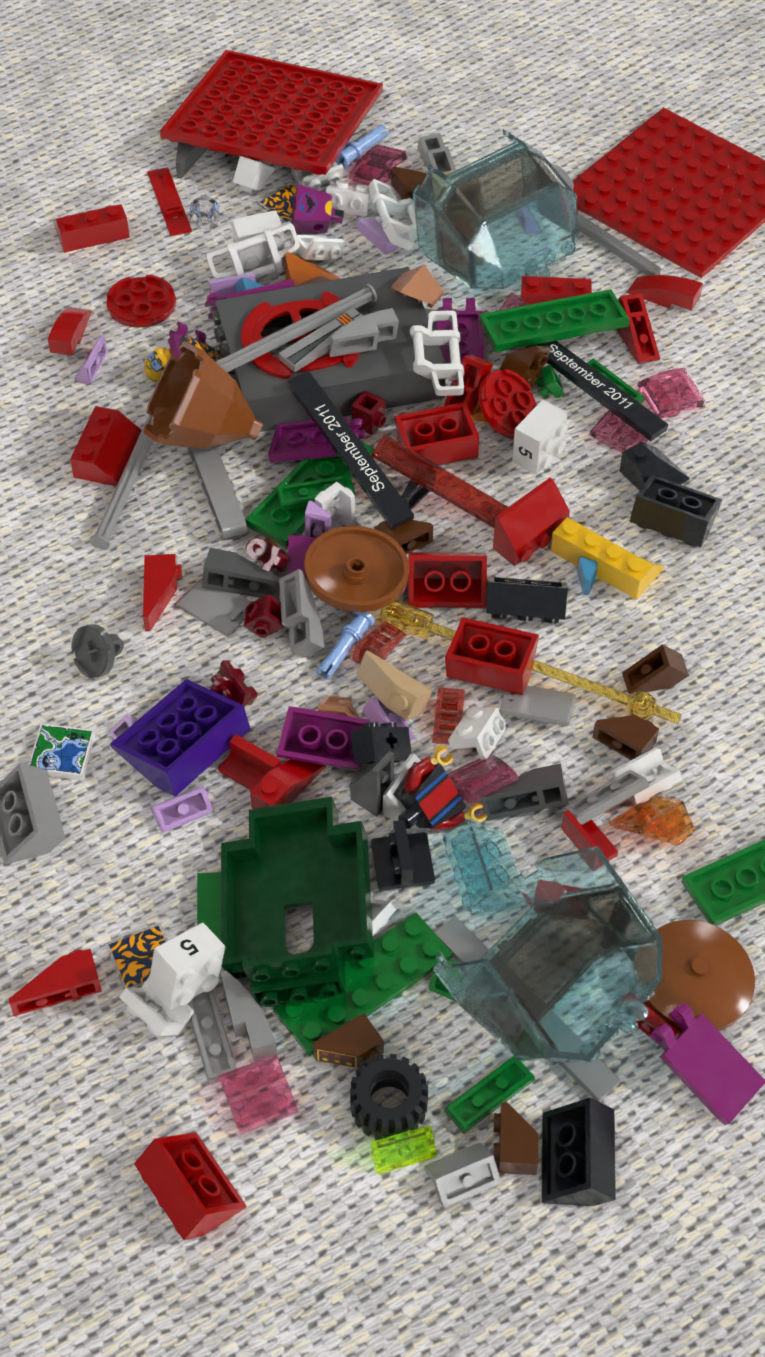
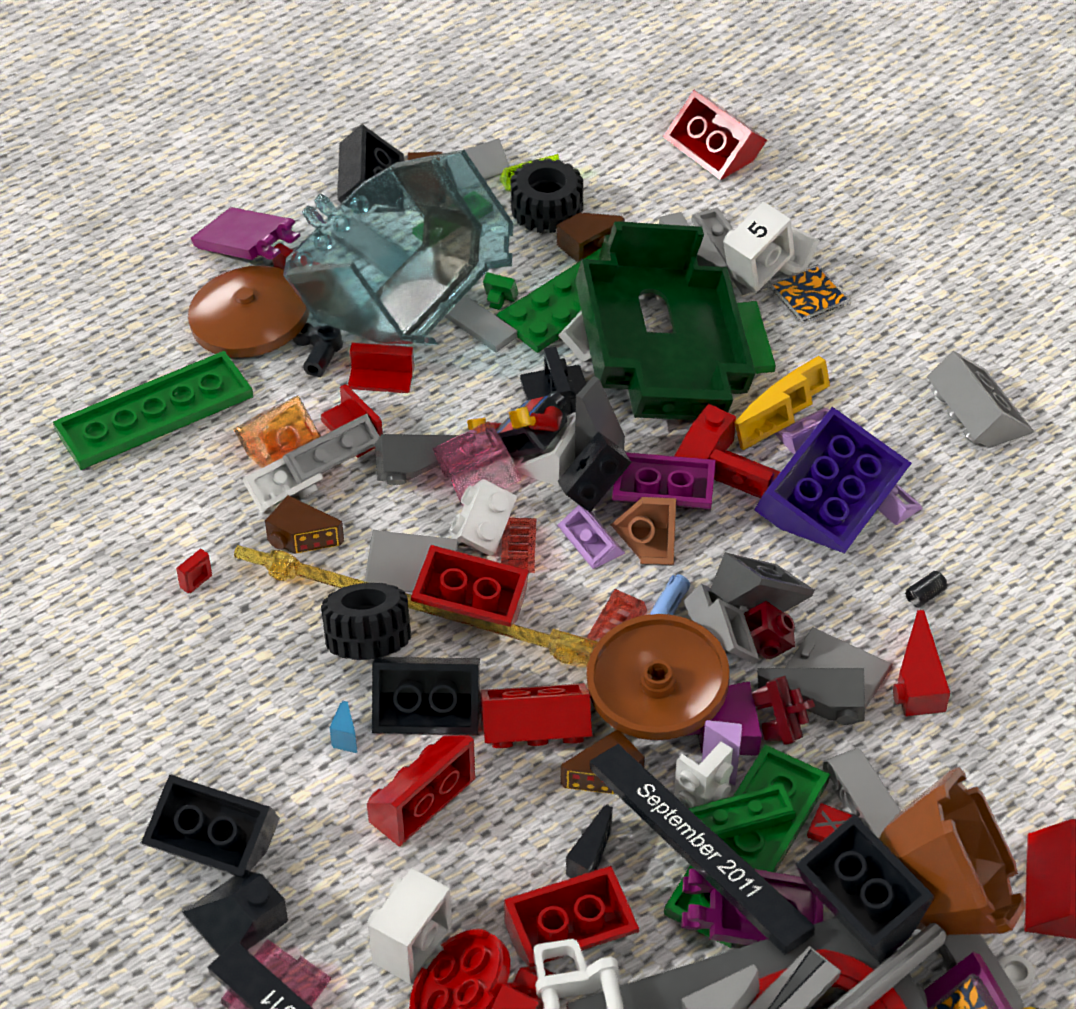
camera: 175 degrees right, 5 degrees down
(62, 750) = (968, 477): tile -> none
(63, 981) = (881, 263): red slope -> none
(95, 650) = (967, 569): dark grey tile -> none
(122, 491) = (1017, 837): light grey axle -> none
(138, 646) = (925, 585): none -> black piece
(209, 818) = (780, 402): none -> yellow slope
(230, 683) = (775, 540): dark red hips -> none
(251, 496) = (825, 822): none -> red tile
(257, 378) = (866, 887): none -> black slope
(258, 1094) = (669, 197): clear pink slope -> none
(264, 629) = (753, 581): none -> dark grey slope
(371, 411) = (679, 951): dark red brick -> none
(393, 687) = (584, 552): tan slope -> none
(438, 480) = (556, 835): clear red tile -> none
(483, 868) = (465, 382): clear light blue slope -> none
(582, 617) = (366, 621): none -> black tyre
(614, 563) = (313, 754): yellow wedge -> none
(656, 671) = (259, 604): reddish brown slope -> none
(712, 704) = (194, 571): none -> red tile

